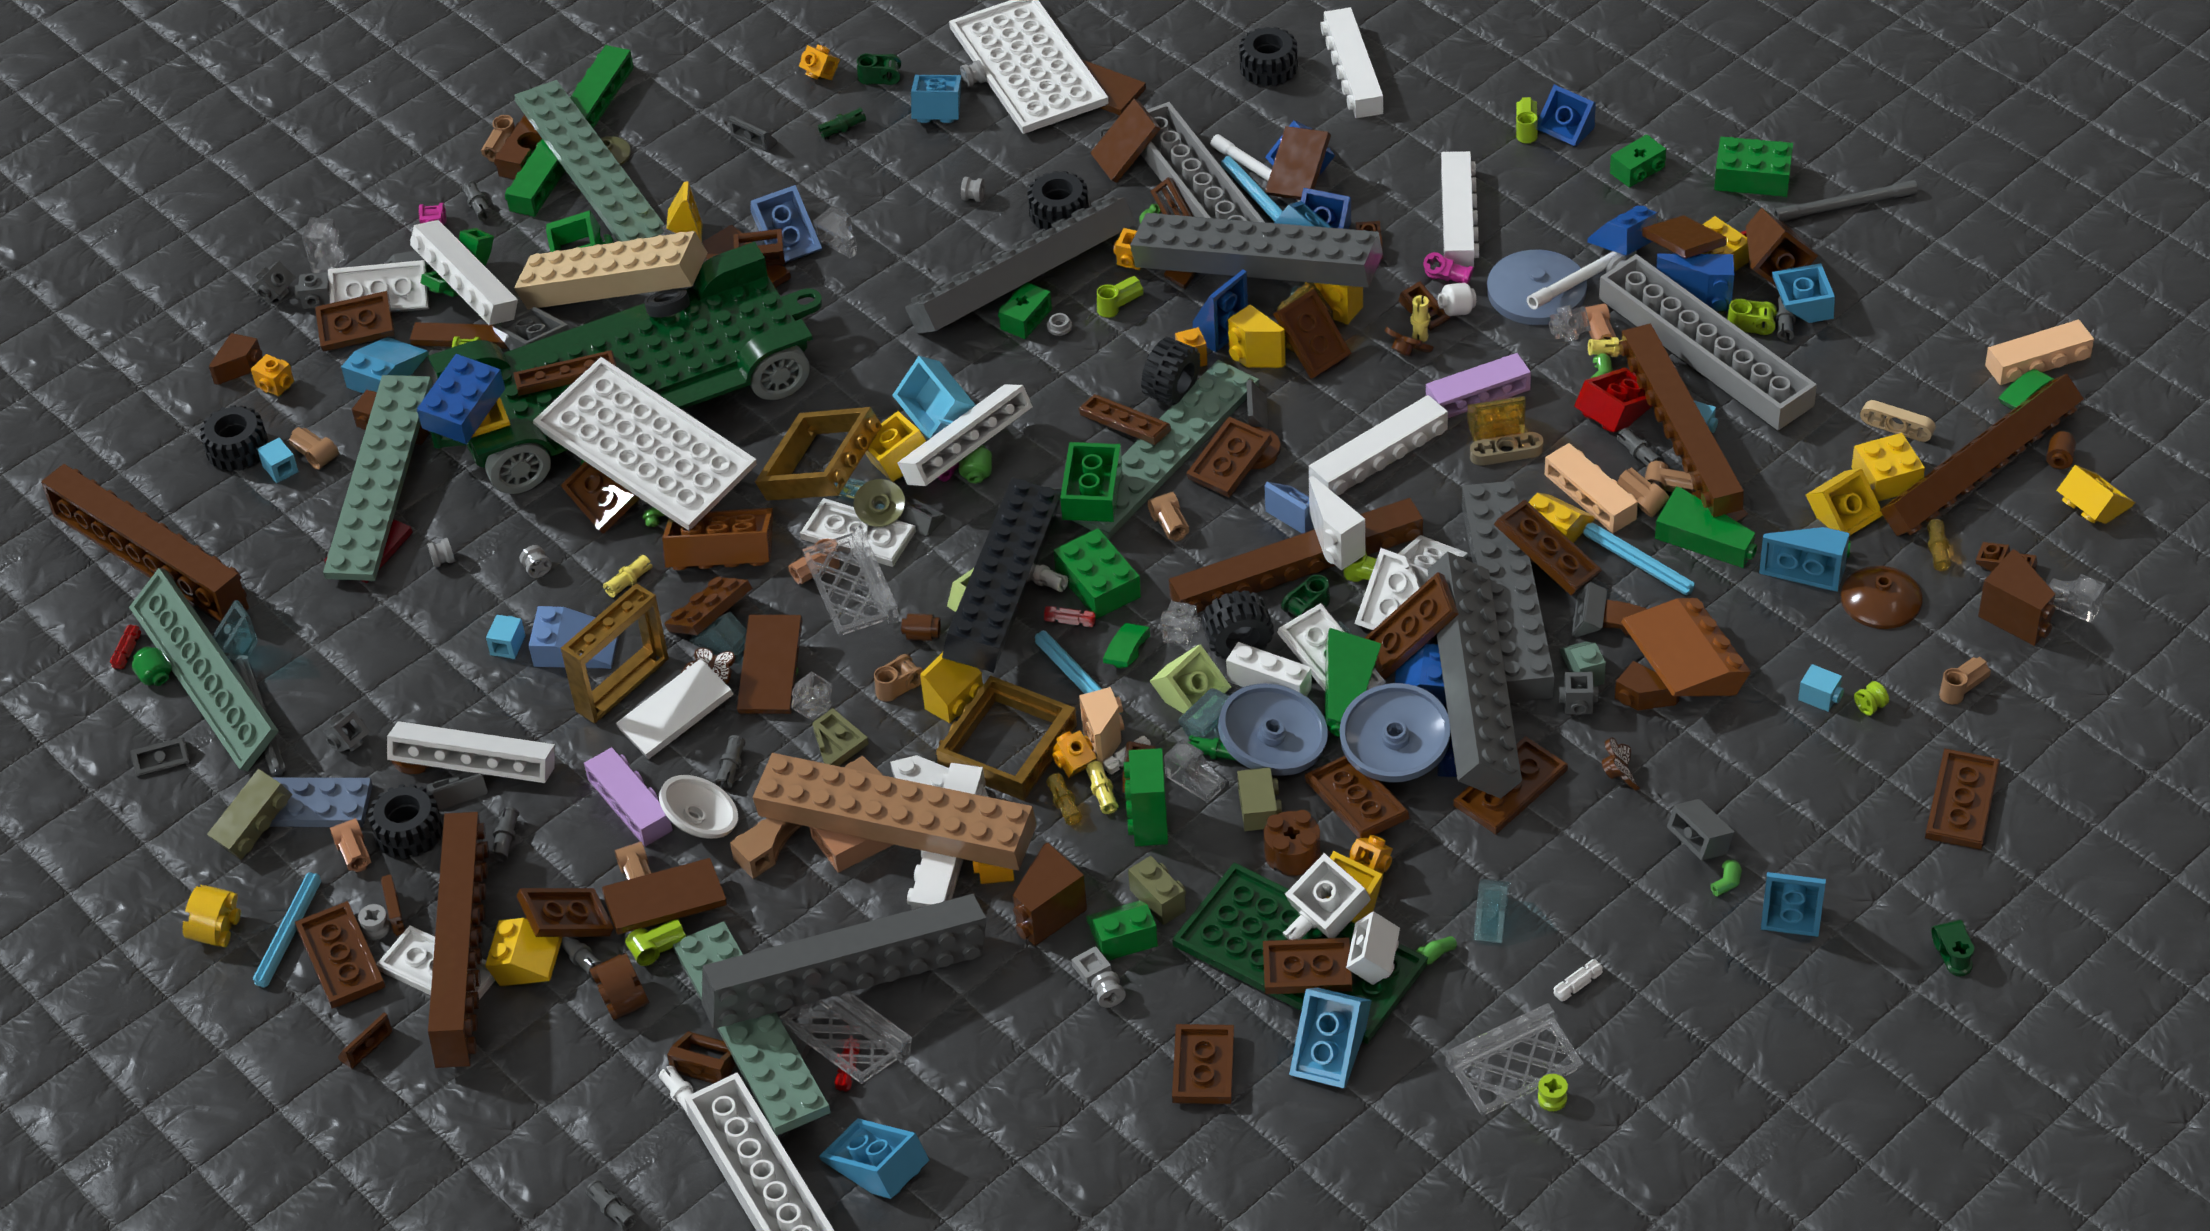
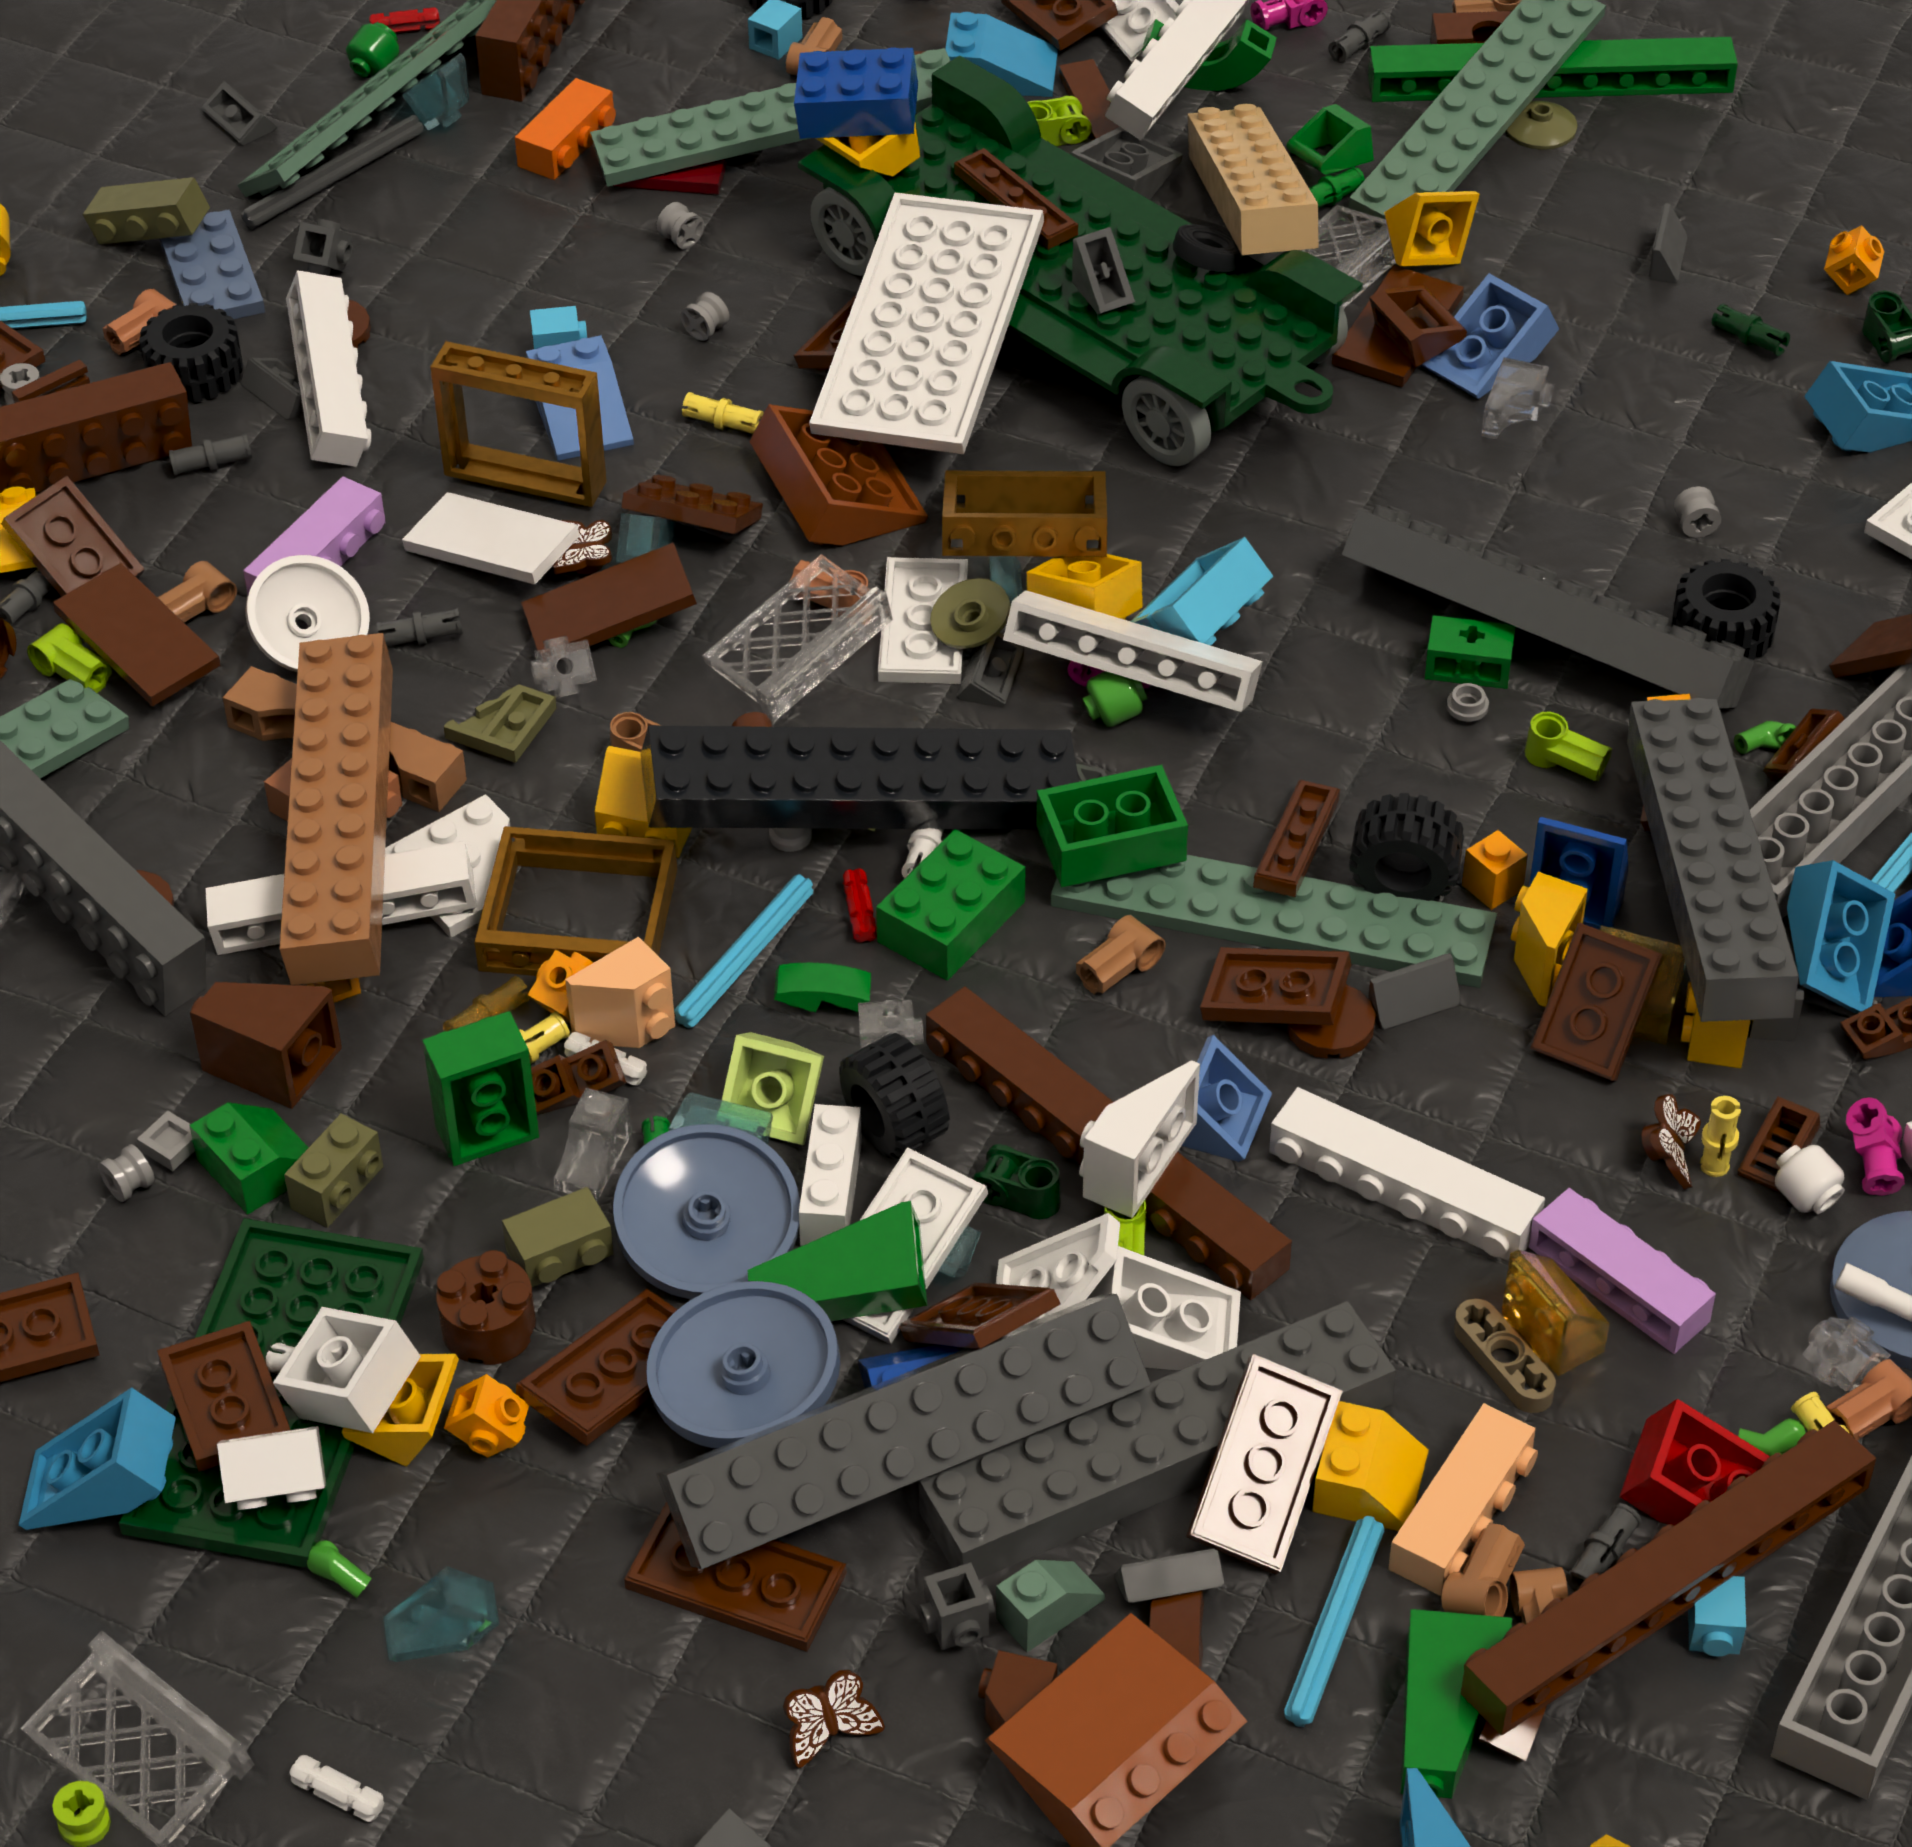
camera: 65 degrees right, 0 degrees up
(306, 586) = (564, 128): none -> orange brick
(668, 351) = (1100, 271): none -> dark grey slope

